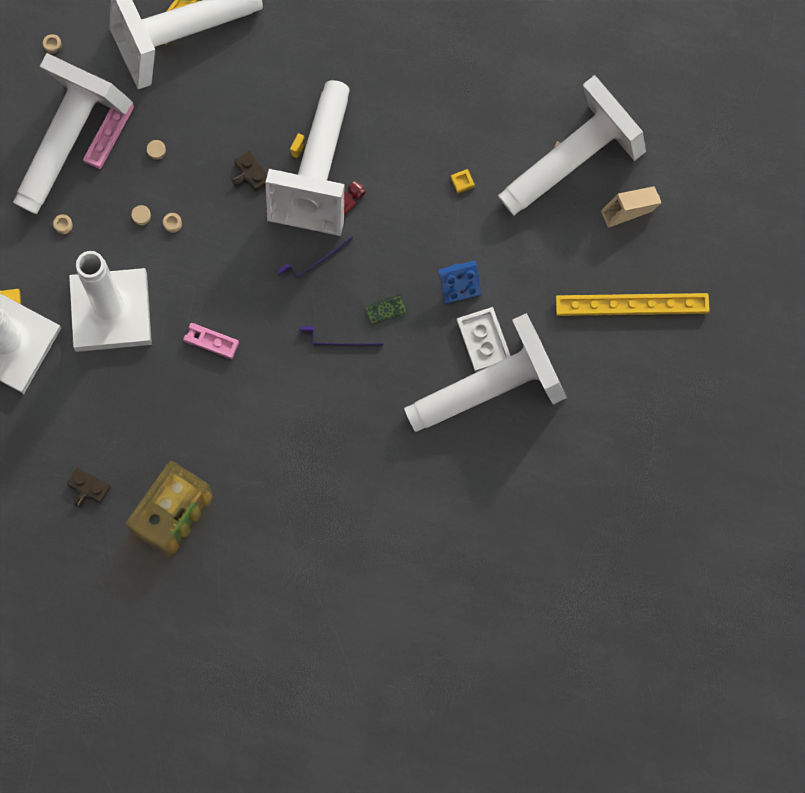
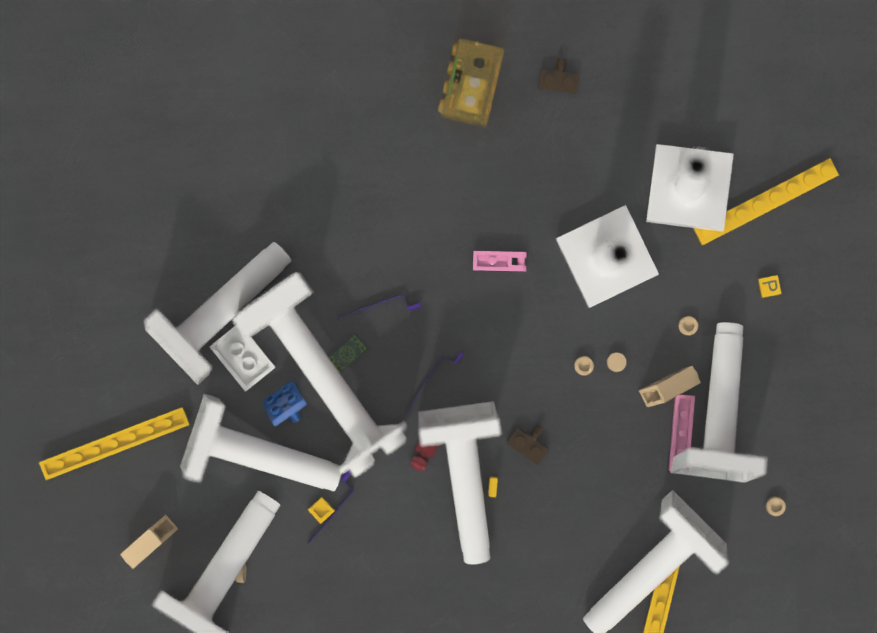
camera: 160 degrees right, 15 degrees up
(102, 174) = (670, 386): none -> tan slope
(156, 149) = (628, 433): tan tile -> none
(428, 202) = (344, 478): none -> dark purple piece
(432, 361) = (279, 312): none -> white piece
(539, 270) = (217, 441): none -> white piece

